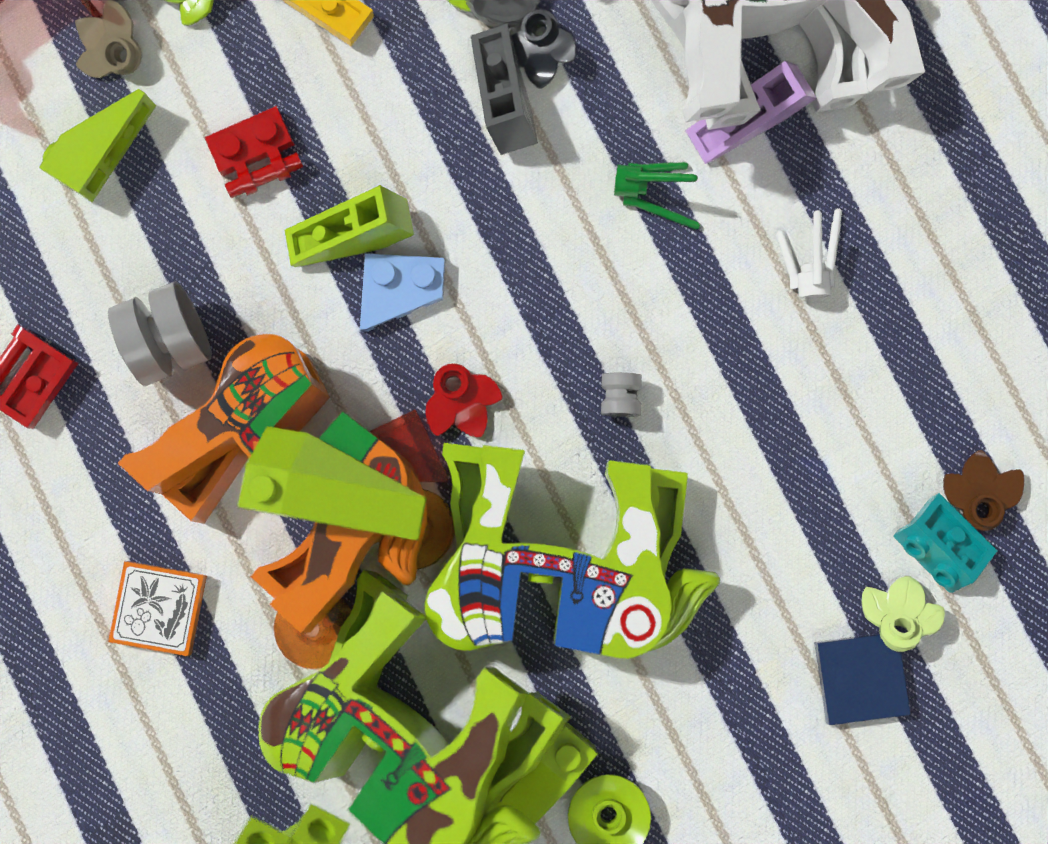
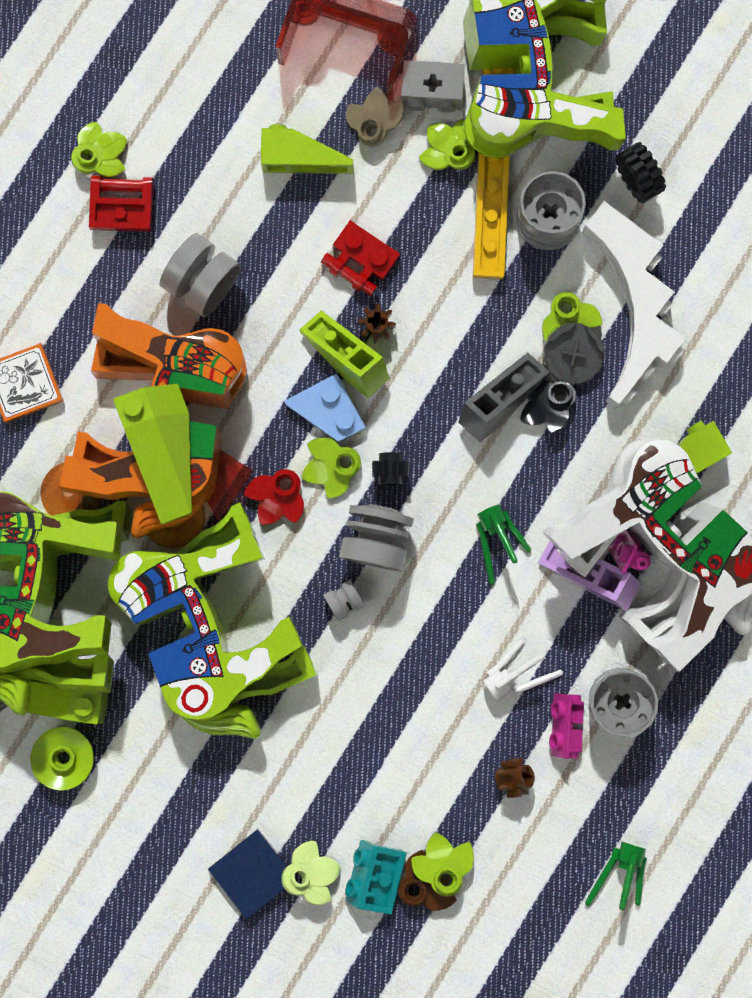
camera: 60 degrees right, 0 degrees up
(337, 165) = (370, 317): none -> reddish brown gear
(462, 327) = (326, 466): none -> lime plate
(507, 257) = (390, 468): none -> black gear
(575, 314) = (376, 537): none -> light grey wheel
(762, 50) = (628, 552): none -> dark pink hinge
(912, 248) = (564, 740): none -> dark pink hinge
(927, 326) = (514, 778): none -> reddish brown gear
(929, 139) = (623, 720): none -> light grey wheel
(971, 458) = (443, 859): none -> lime plate

